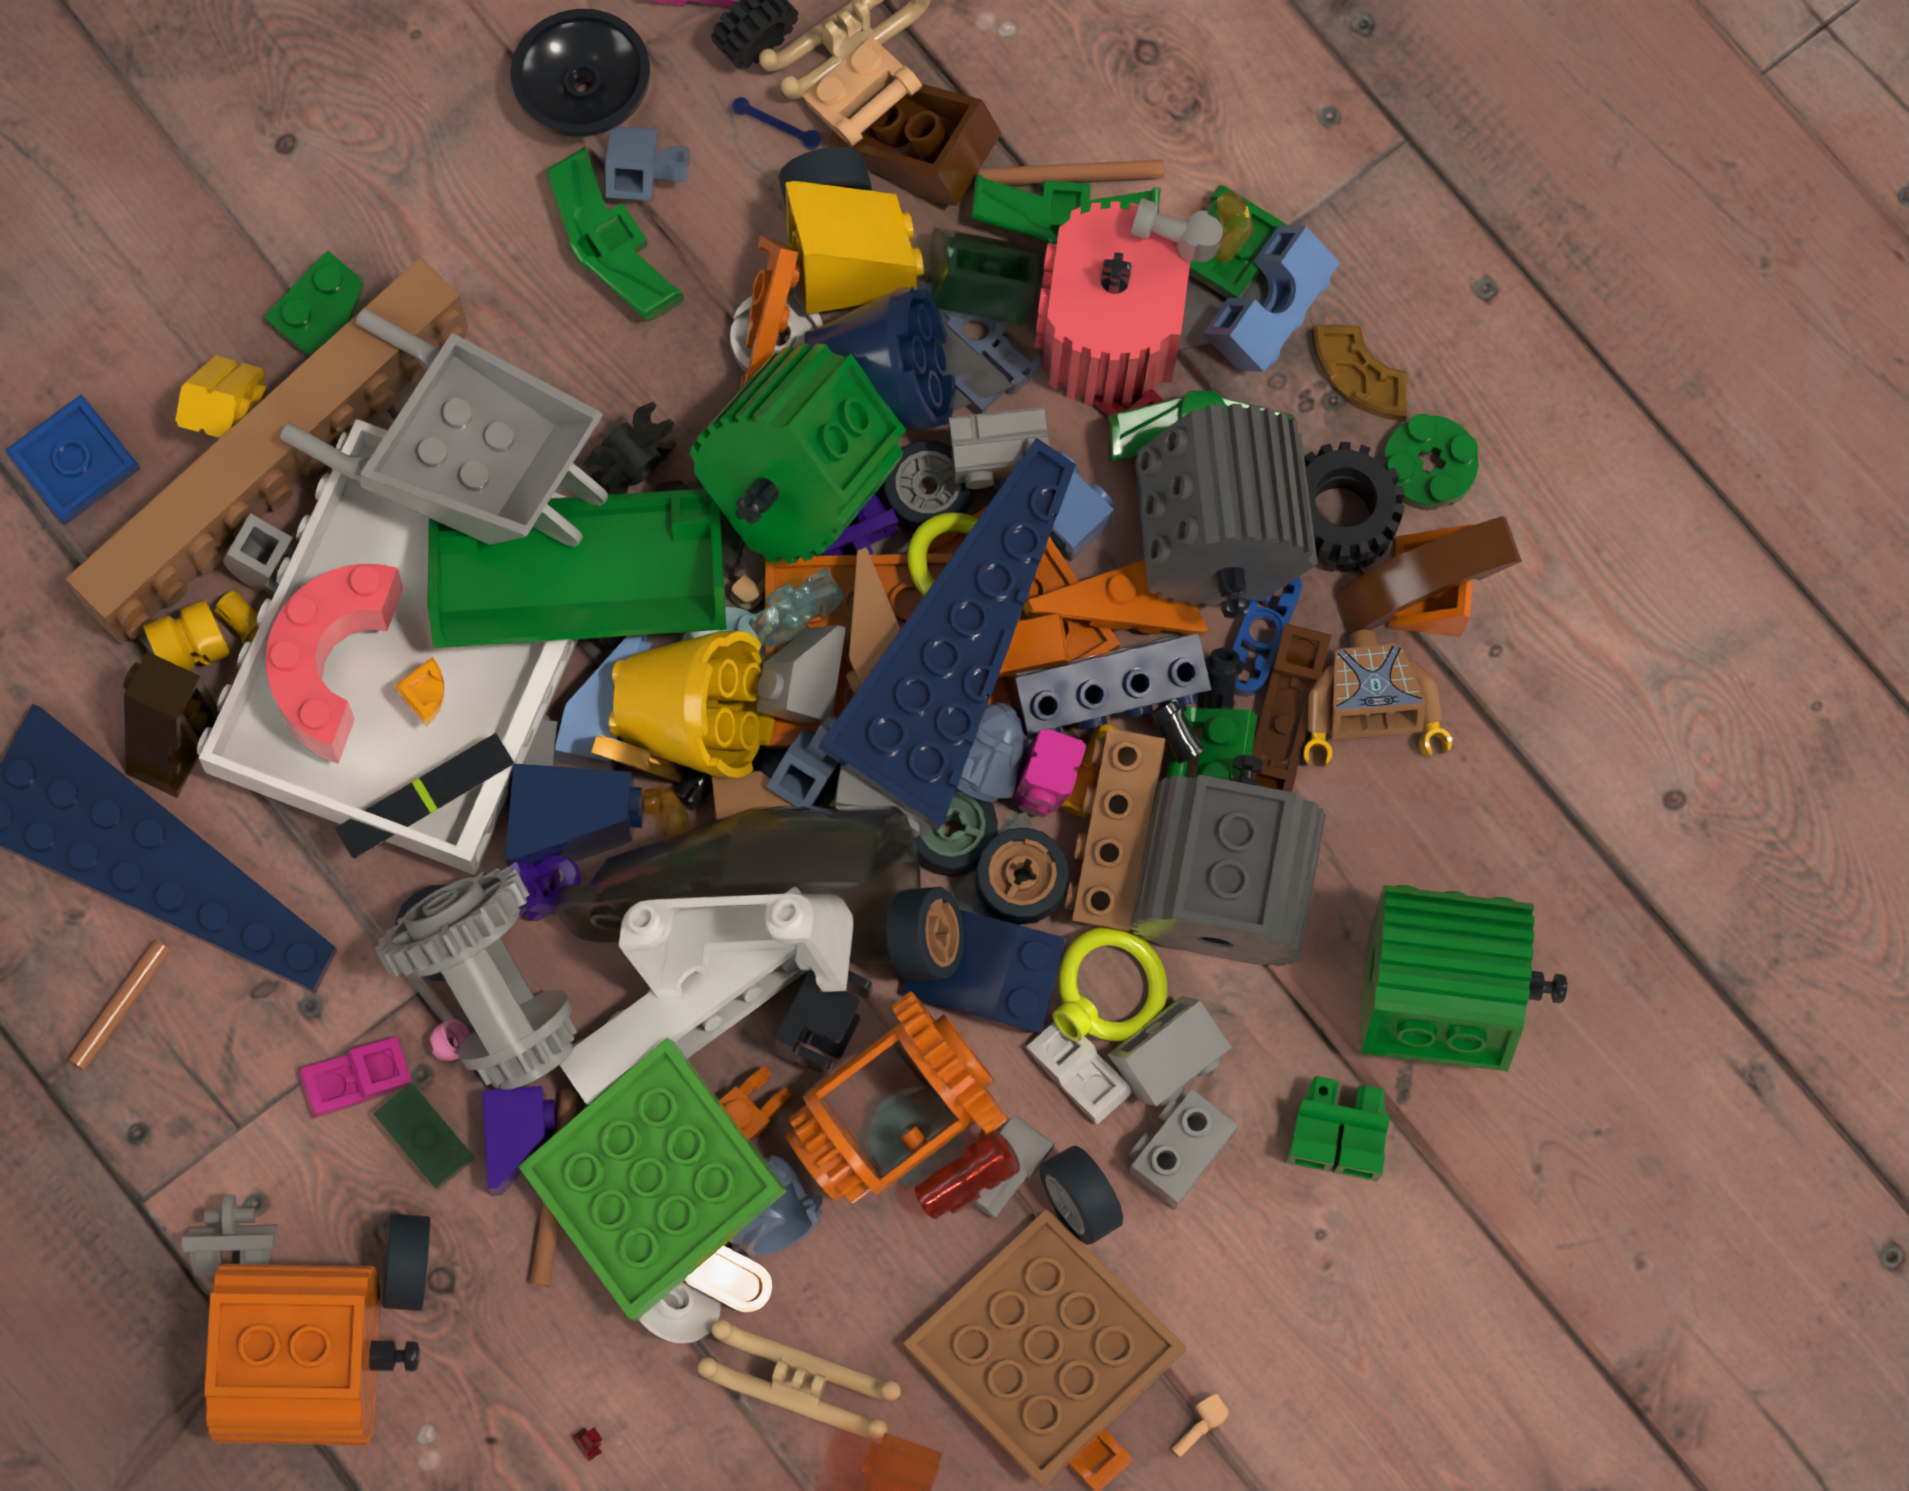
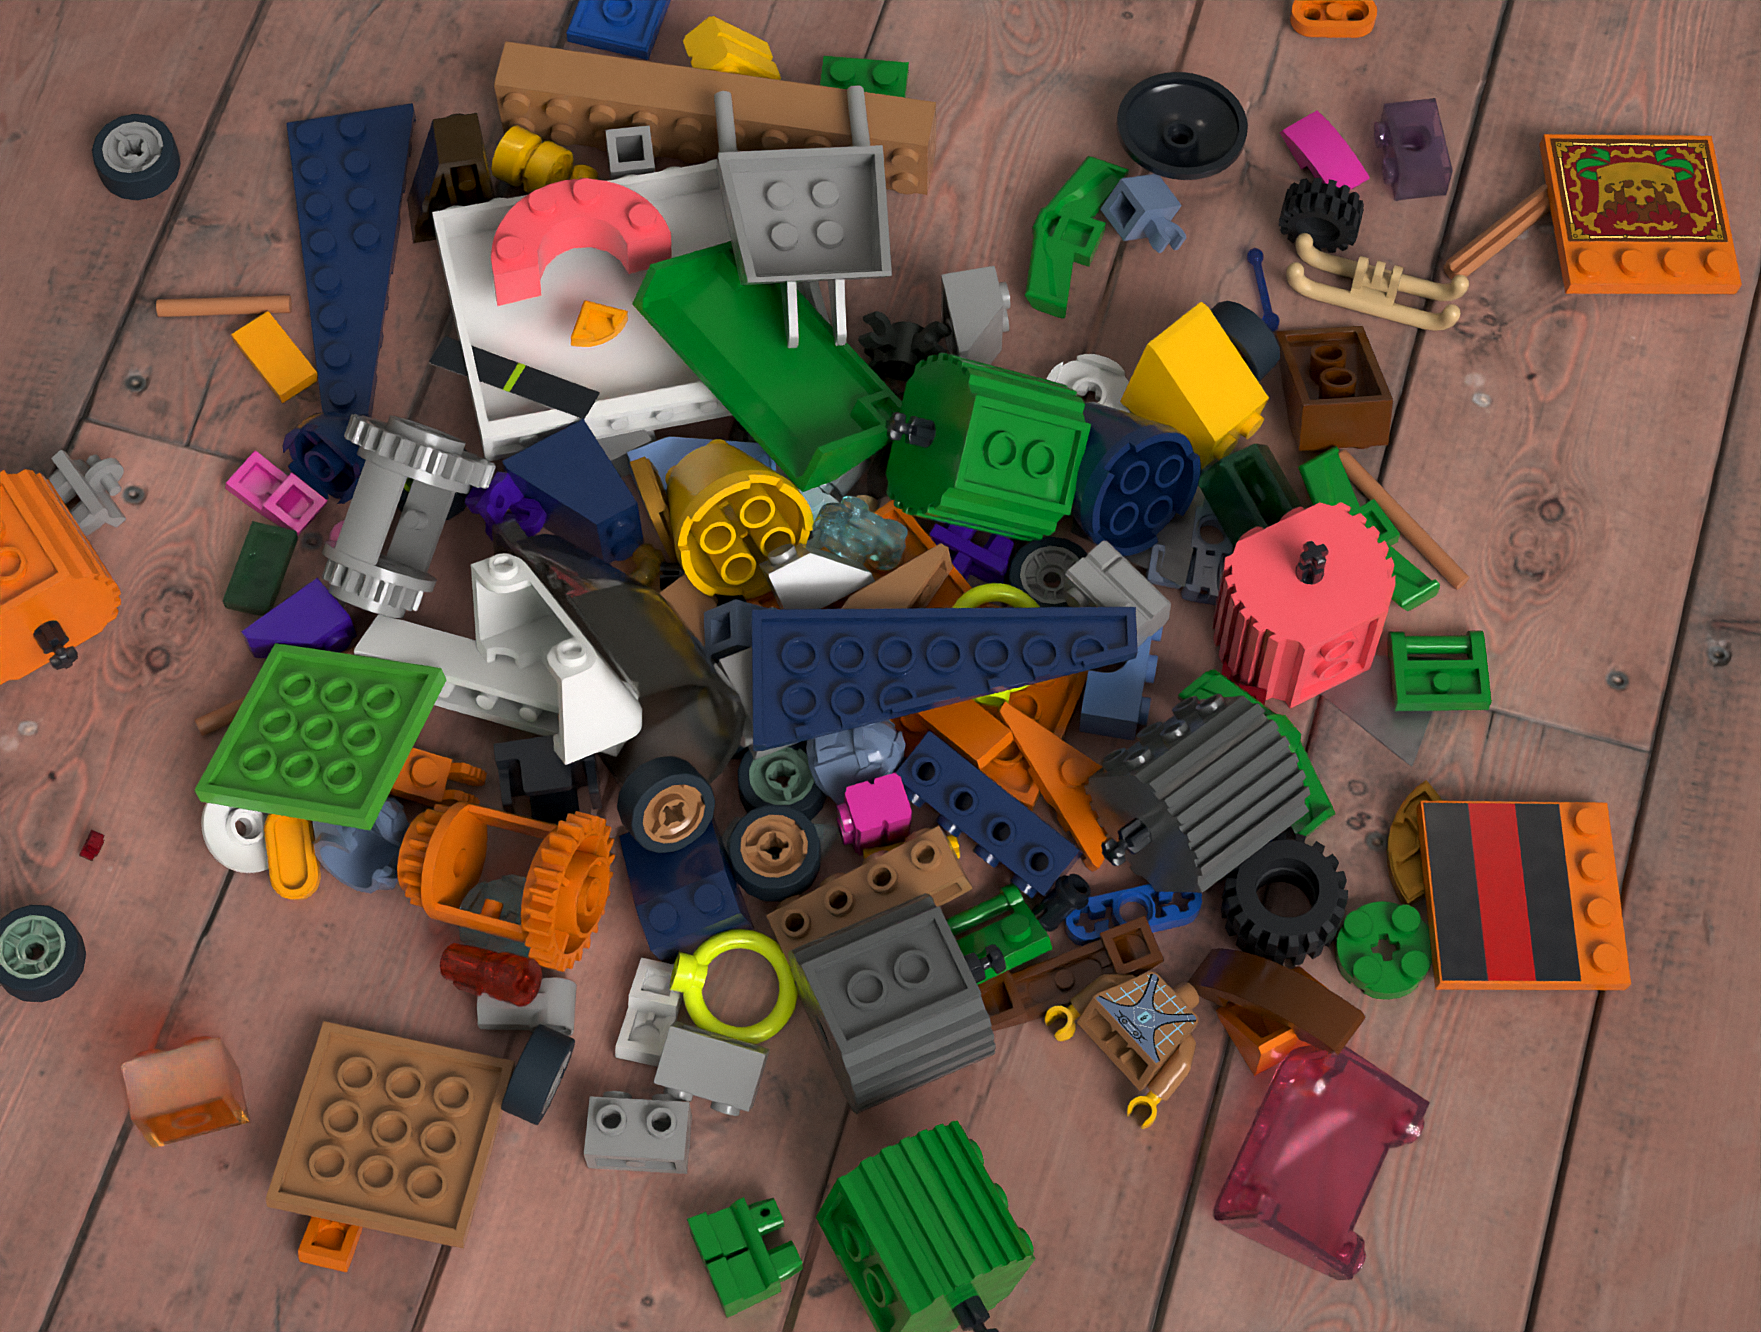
camera: 60 degrees right, 10 degrees down
(209, 992) = (275, 357): none -> light orange tile
(361, 1003) = (324, 455): none -> dark blue cylinder
(406, 1262) = (144, 614): black wheel -> none
(642, 372) = (975, 312): none -> light grey slope
(769, 297) = (1094, 369): orange wing -> none
(798, 1381) = (242, 963): tan piece -> none
(855, 84) = (1335, 322): light nougat plate -> none
(1177, 730) = (986, 890): black pin -> none
(1195, 237) = (1395, 600): light grey leg -> none
(1213, 1414) = (430, 1310): light nougat hand -> none
(1236, 225) = (1455, 659): clear yellow arm -> none
(1296, 273) = (1457, 733): medium blue arch -> none
(1462, 326) = (1522, 896): none -> plate
(1565, 642) = (1317, 1157): none -> clear pink windscreen

